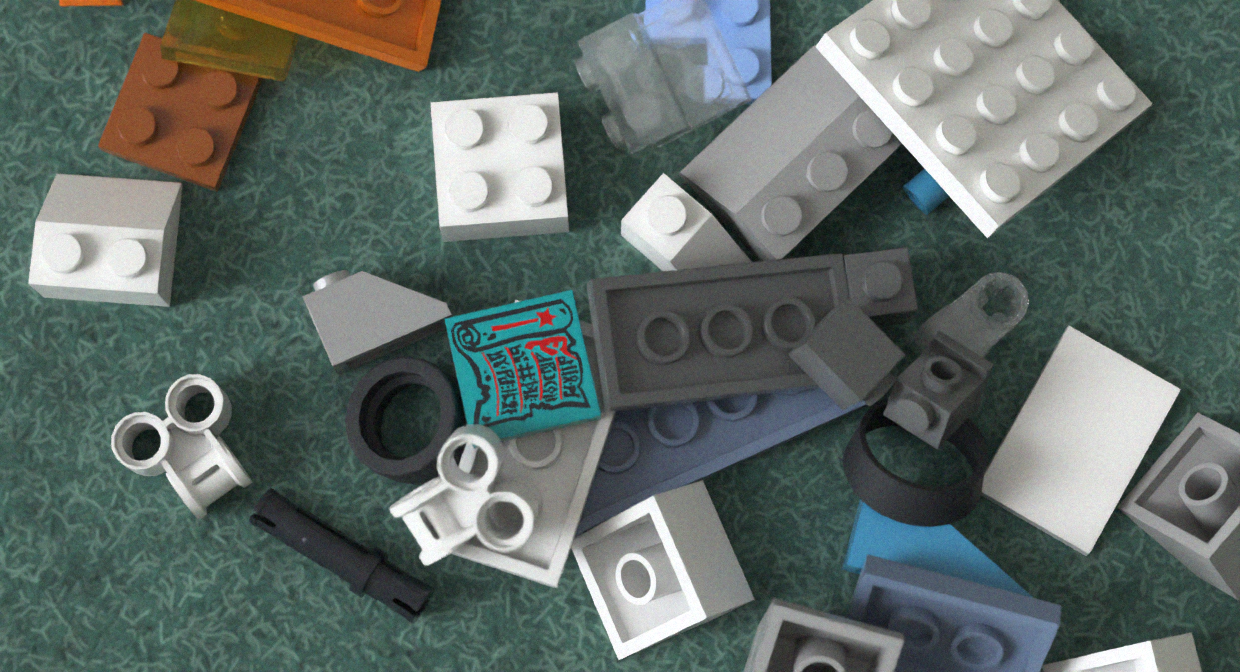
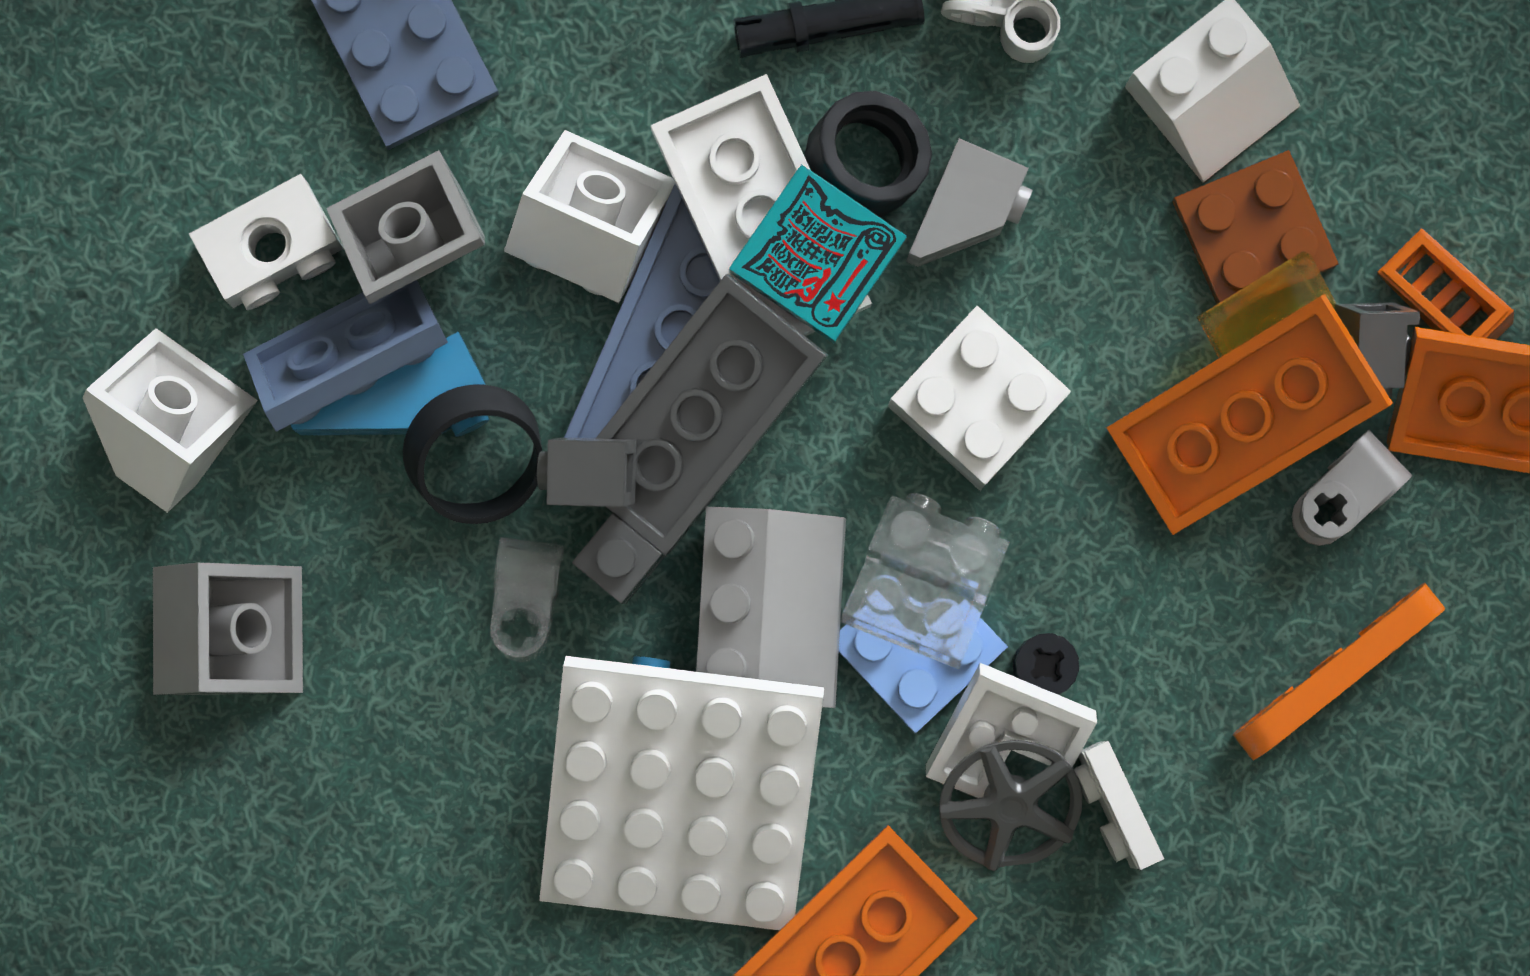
camera: 135 degrees right, 5 degrees up
(457, 505) = (771, 111): white piece -> none
(678, 230) = (793, 470): white slope -> none
(939, 390) = (503, 514): dark grey brick -> none
(1077, 440) = (373, 588): white tile -> none

